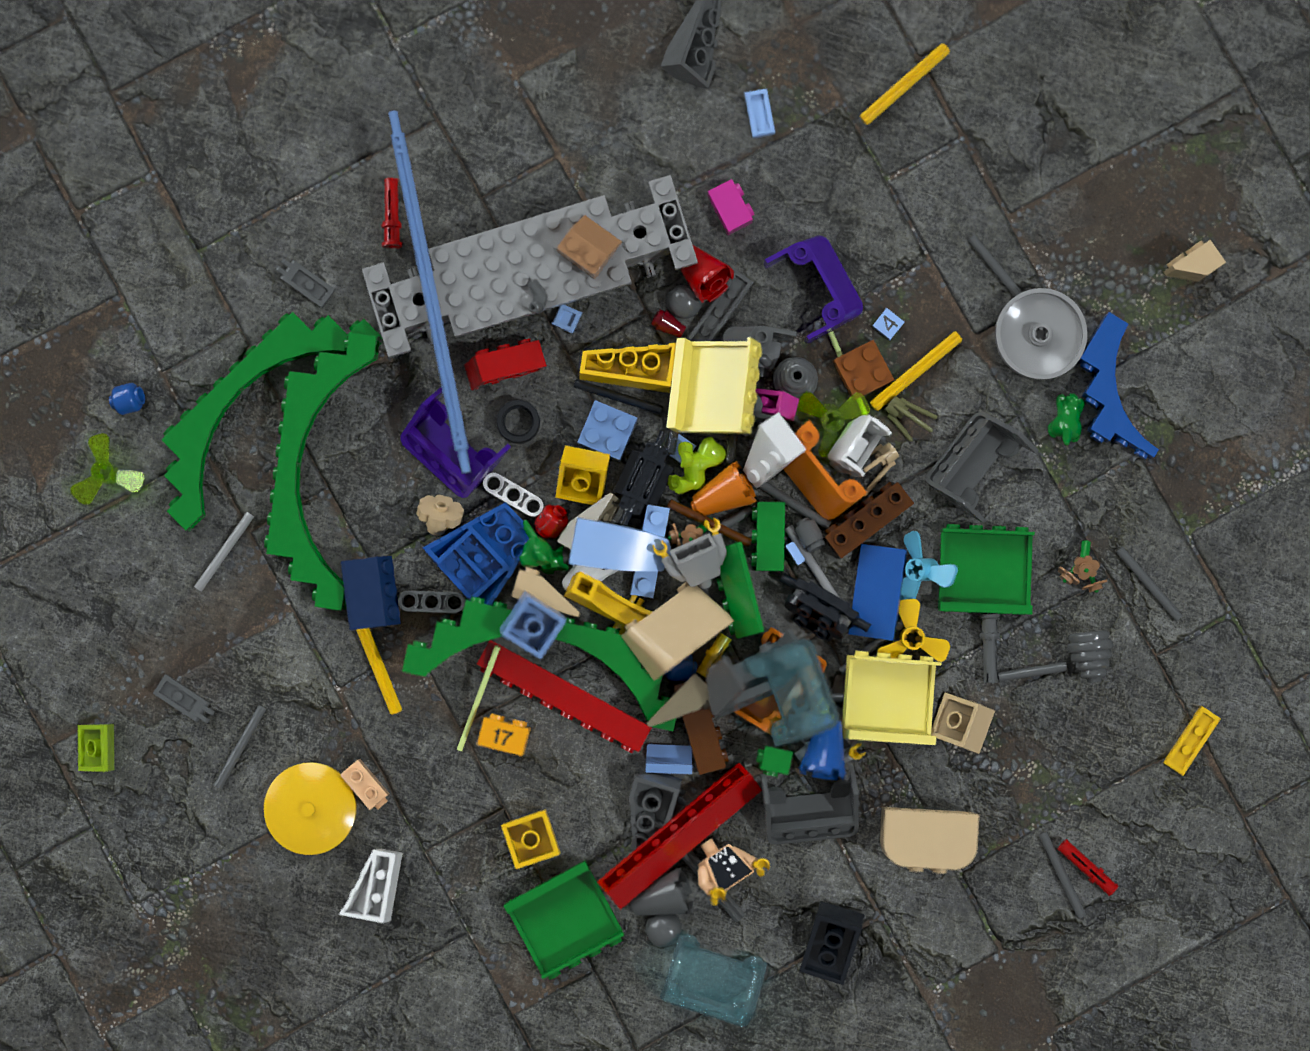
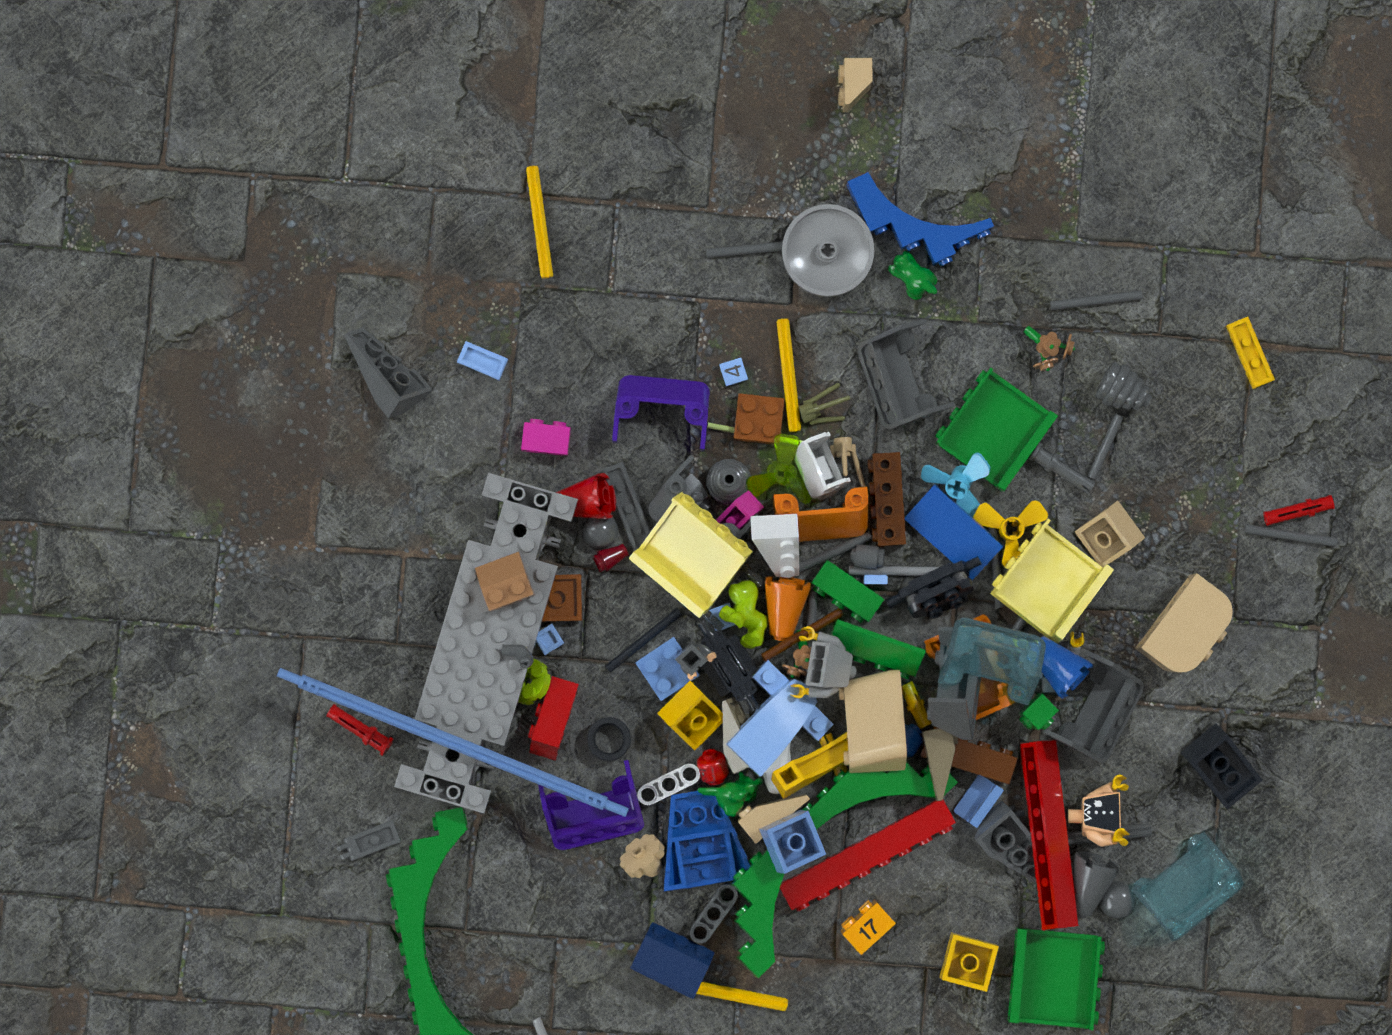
camera: 55 degrees left, 0 degrees up
(303, 402) = (570, 993): green arch -> none
(478, 698) = (822, 929): yellowish green axle -> none
(523, 334) = (539, 684): none -> lime plate
(608, 308) = (565, 599): none -> dark orange plate
(631, 367) = (626, 613): yellow wedge -> none
(632, 443) = (694, 656): none -> dark grey piece

